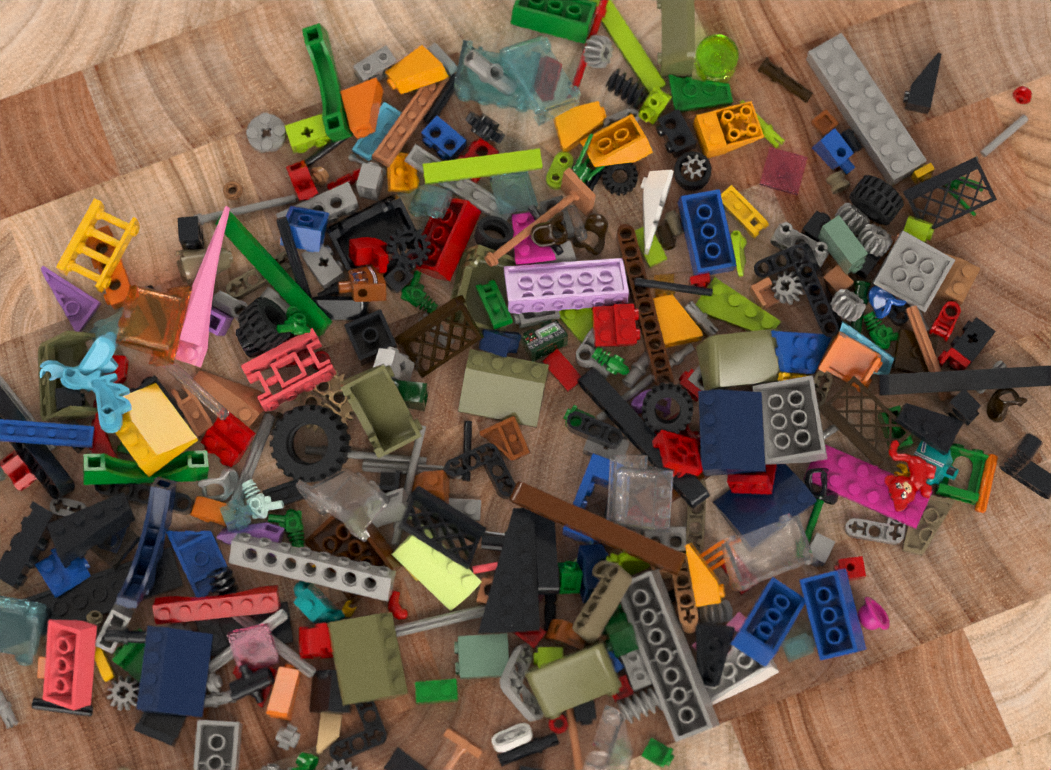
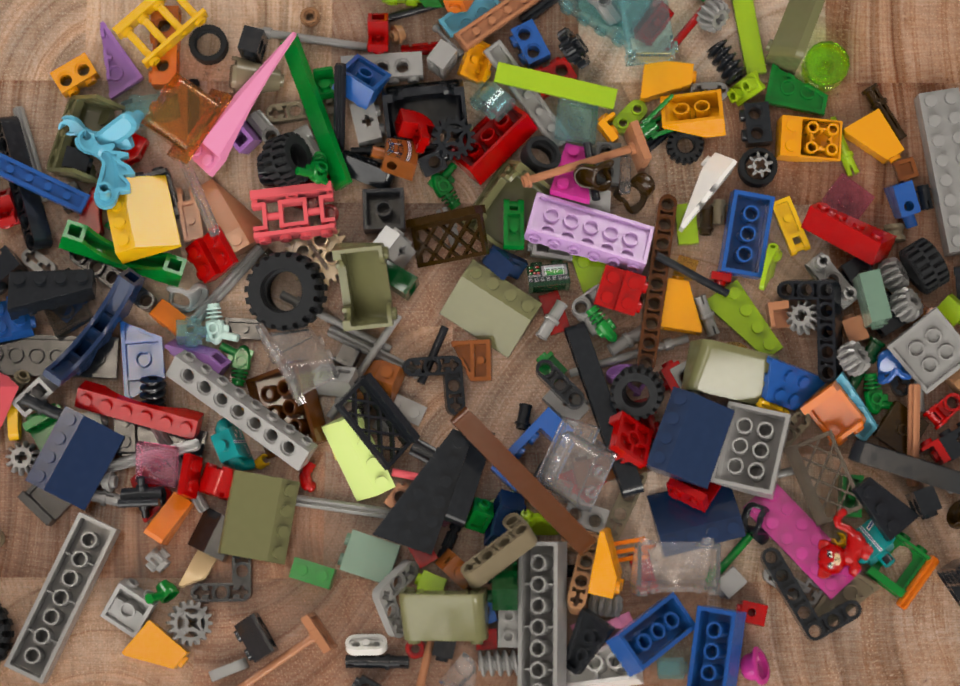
camera: 25 degrees right, 5 degrees up
(31, 322) = (73, 71): none -> light orange brick
(154, 264) = (211, 29): none -> black tyre
(270, 242) = (324, 80): none -> green bracket
(288, 646) = (190, 476): none -> red plate
(543, 189) = (608, 131): none -> light orange bracket
(563, 376) = (551, 320): none -> light grey pin
(572, 474) = (523, 417): none -> black pin
(786, 105) = (875, 137): none -> light orange slope
(797, 197) = (848, 233): none -> red wedge
(892, 539) = (802, 601): none -> black beam

